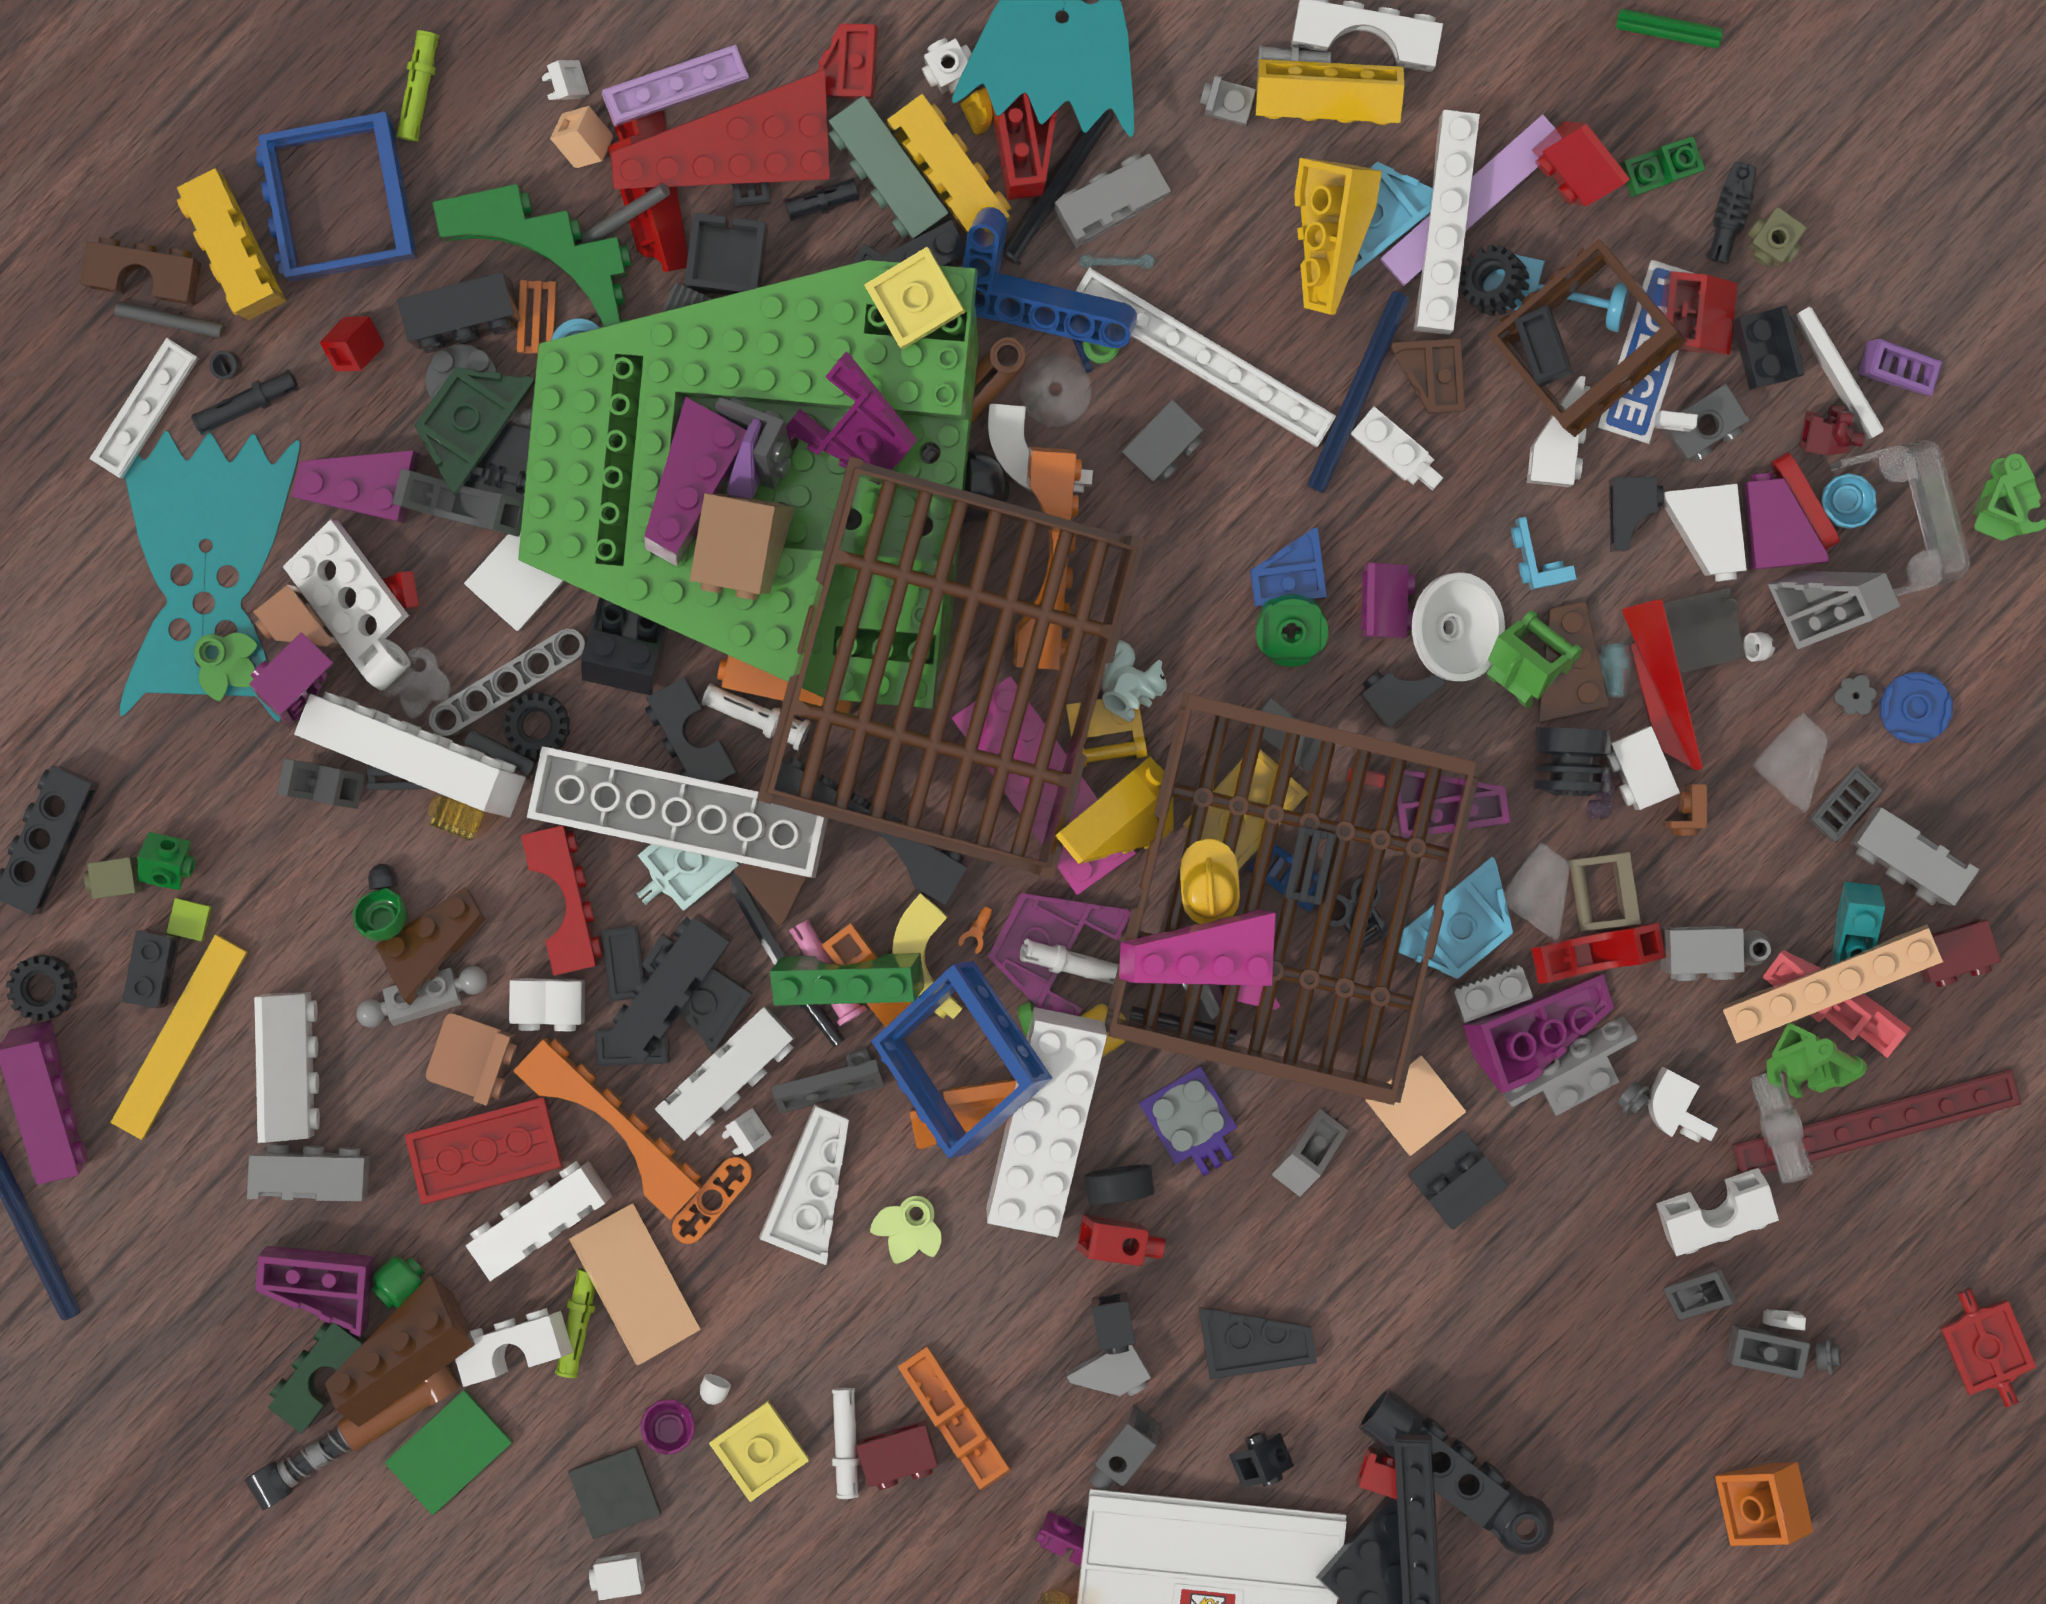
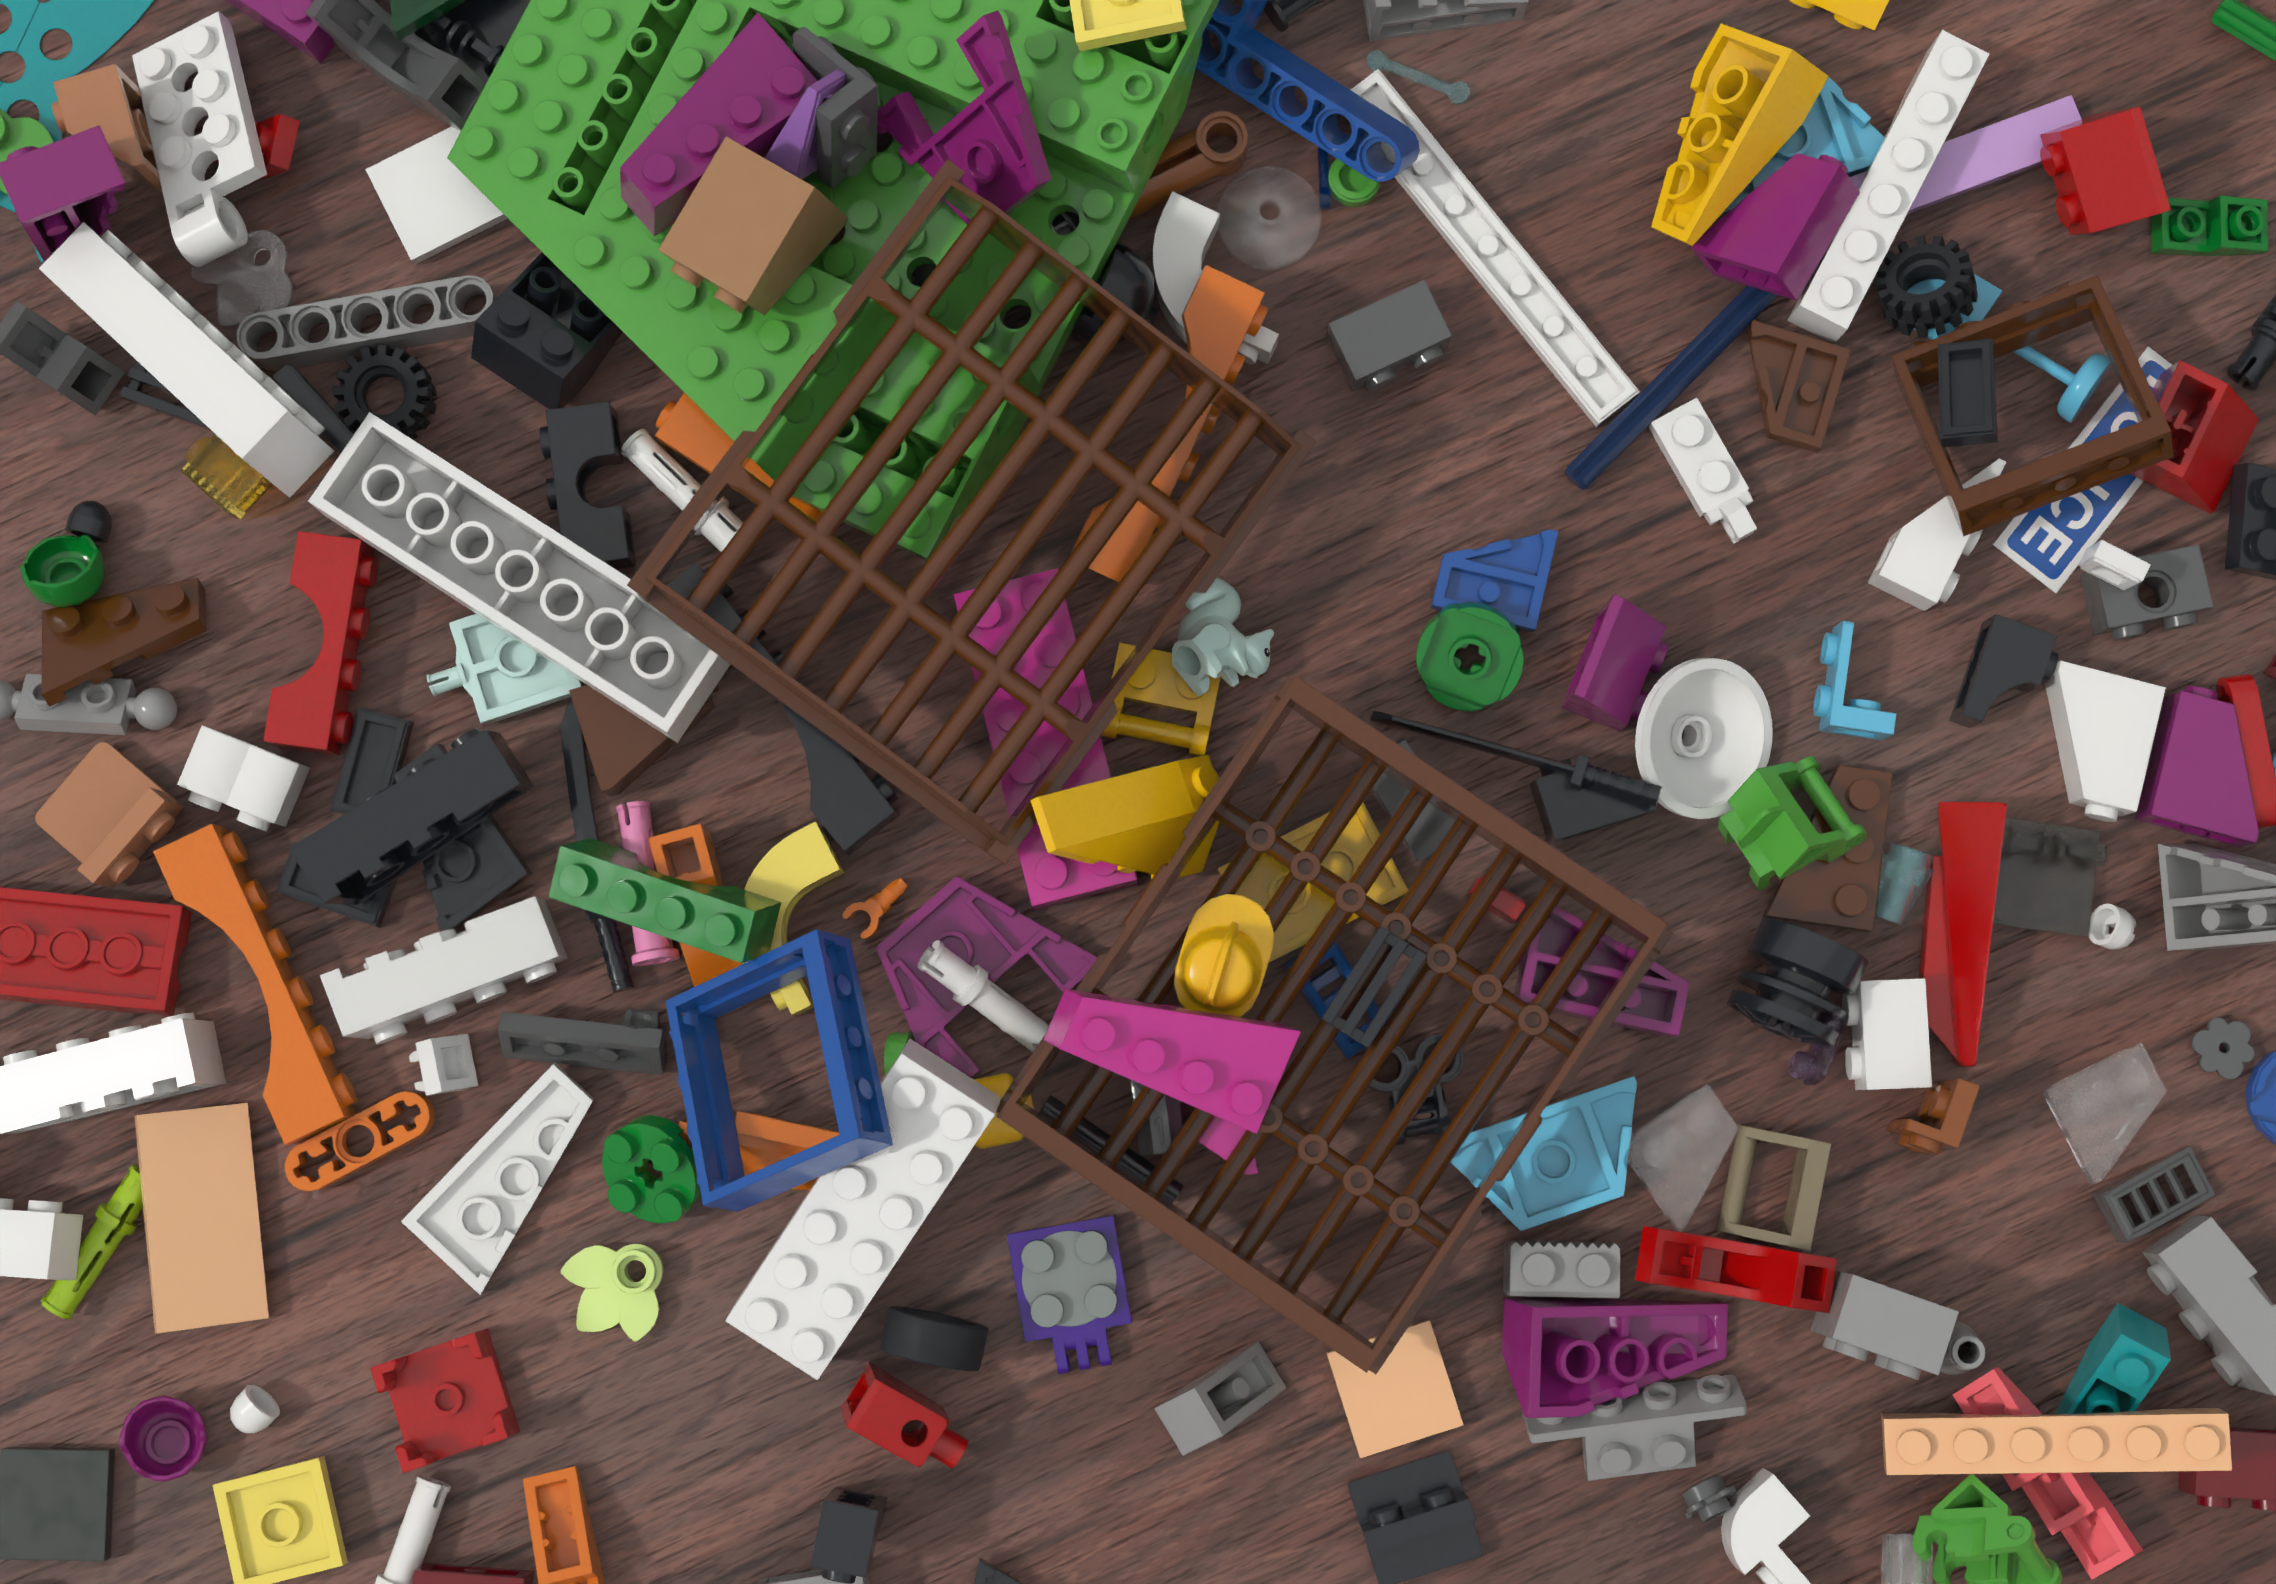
camera: 25 degrees right, 5 degrees down
(832, 1336) = (447, 1399): none -> red panel
(893, 1161) = (631, 1183): none -> green plate
(1388, 278) = (1781, 227): none -> magenta slope
(1389, 680) = (1581, 773): none -> black sword

